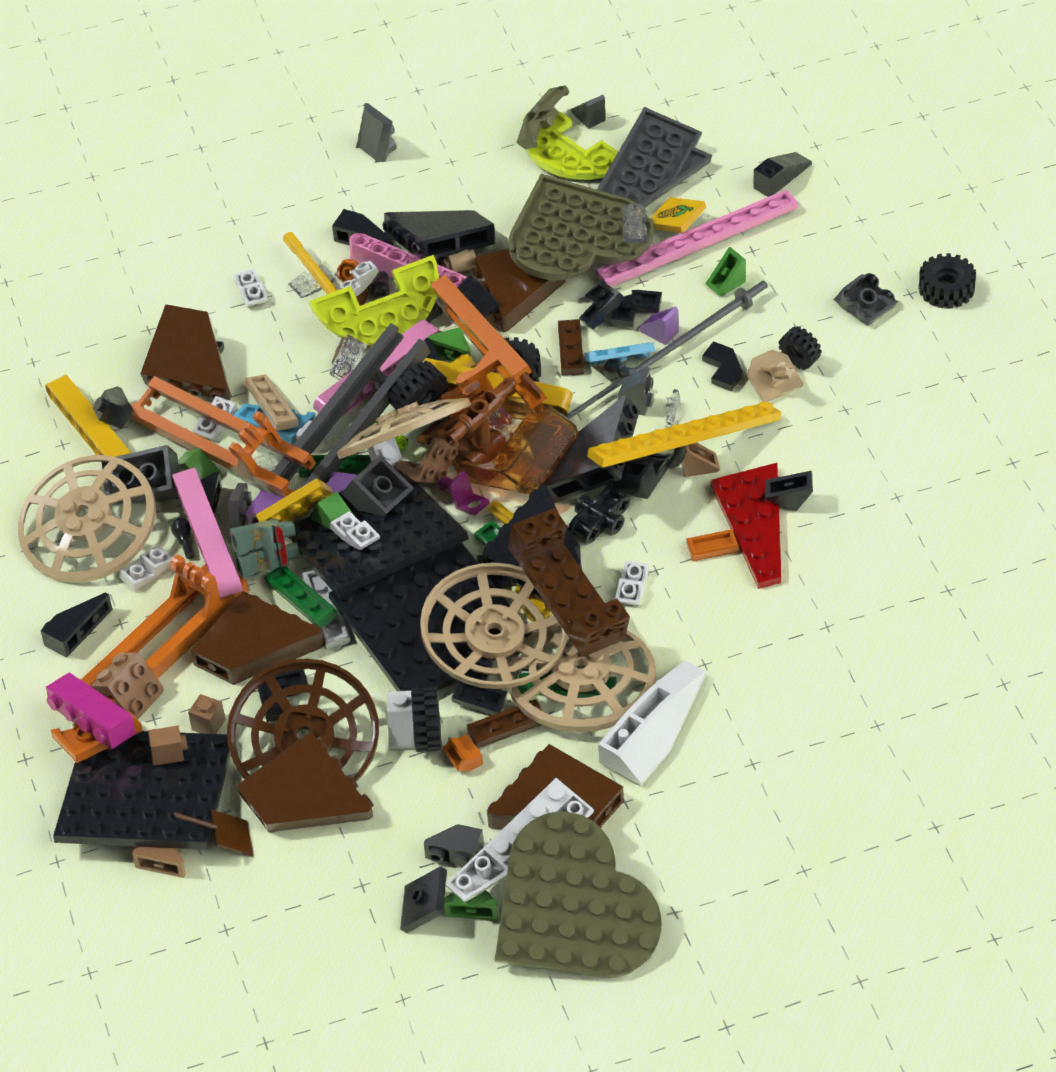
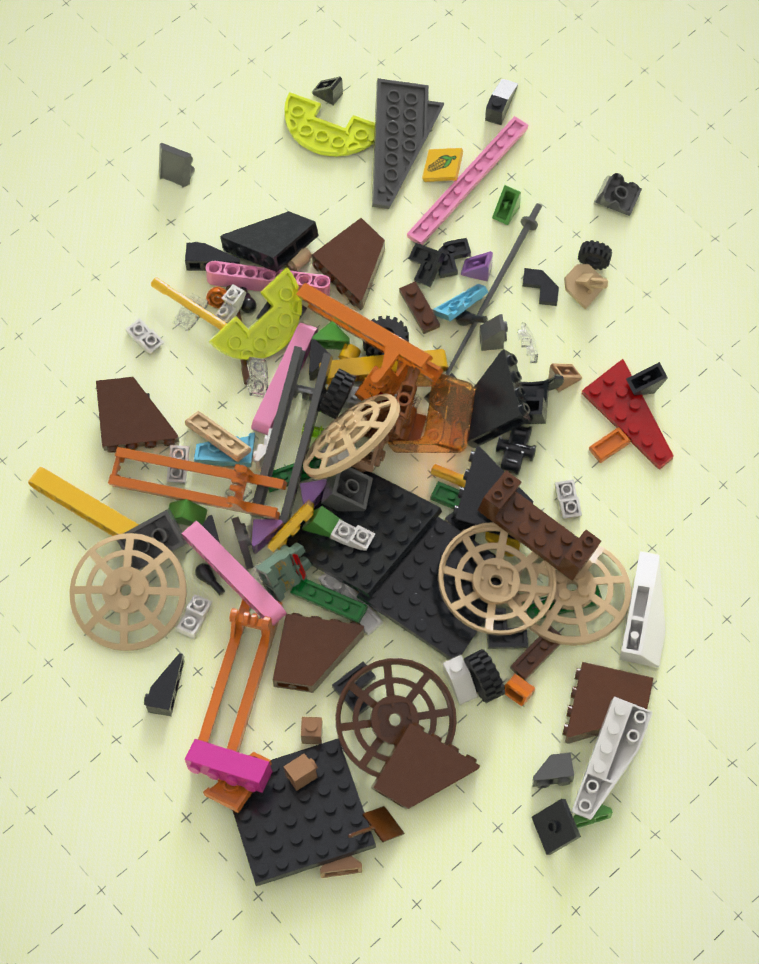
camera: 25 degrees left, 15 degrees up
(113, 407) = (96, 484): black slope -> none
(129, 683) = (238, 726): medium nougat bracket -> none
(462, 493) = (405, 466): magenta bracket -> none
(478, 296) = (333, 289): black slope -> none
(540, 116) = (298, 110): olive plate -> none
(569, 229) = (378, 205): olive plate -> none
(571, 906) = (667, 792): olive plate -> none
(634, 223) = (422, 187): clear slope -> none
(683, 434) = (556, 365): yellow plate -> none
(947, 269) = (675, 150): black tyre -> none

